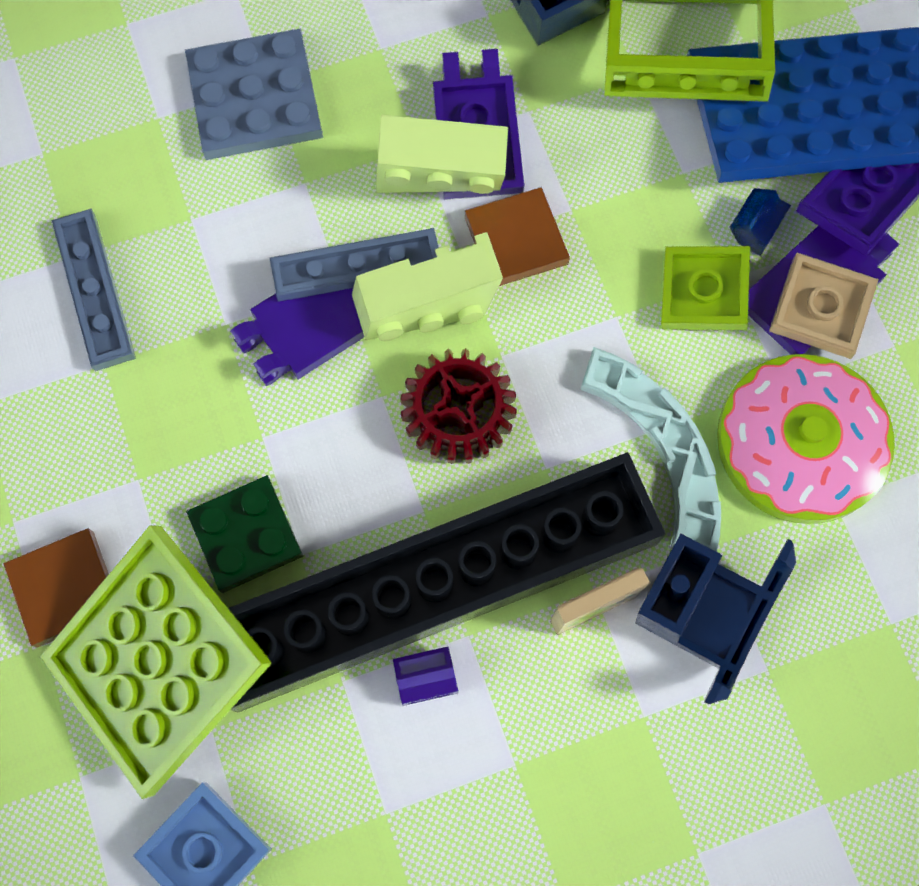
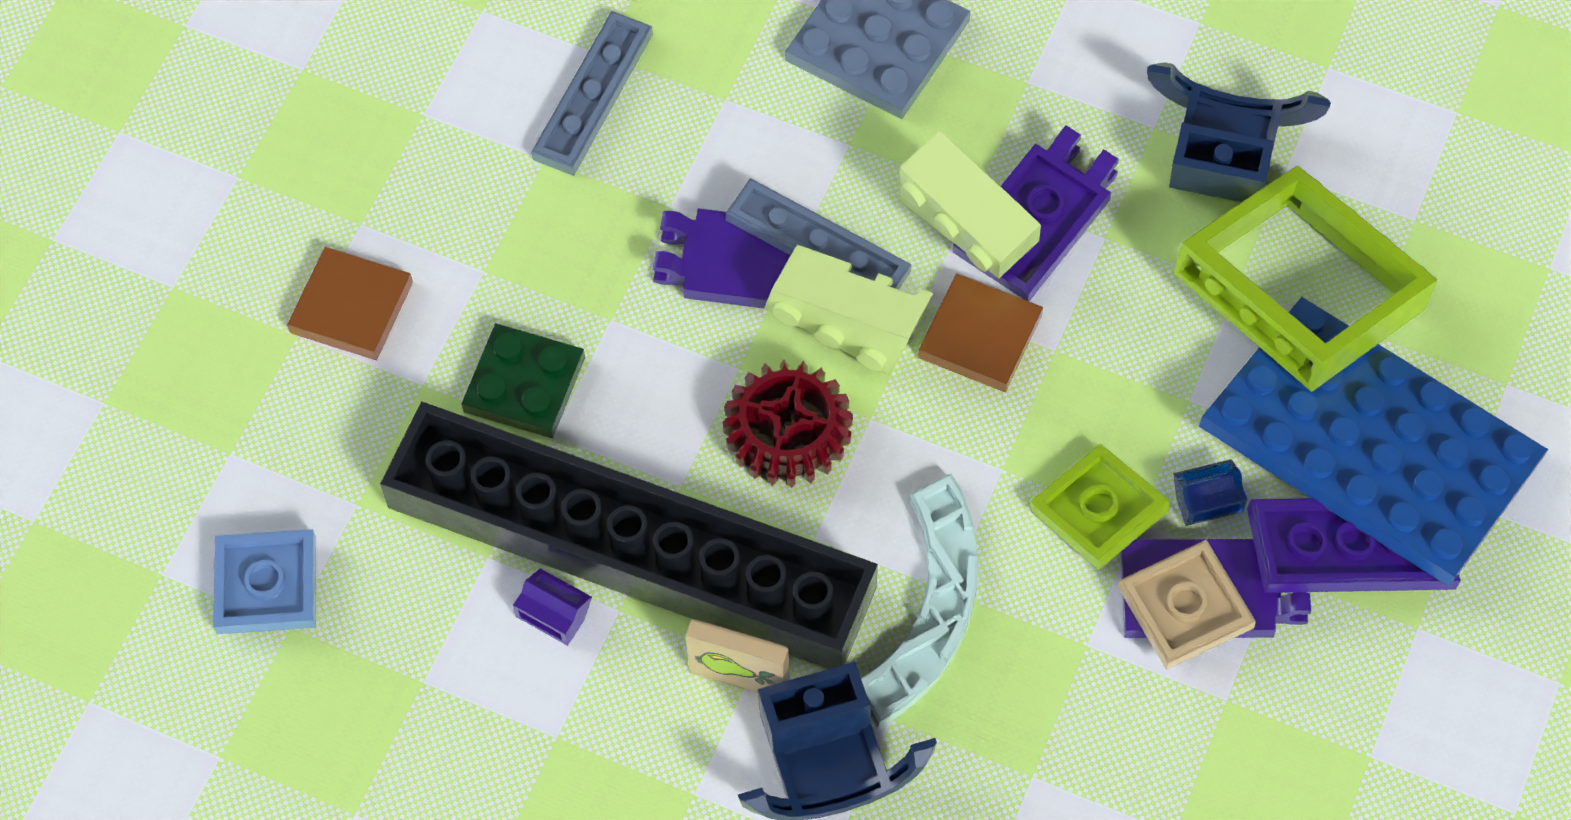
camera: 45 degrees right, 10 degrees down
(154, 661) = (361, 403): lime plate -> none
(805, 439) = (1059, 701): dish -> none

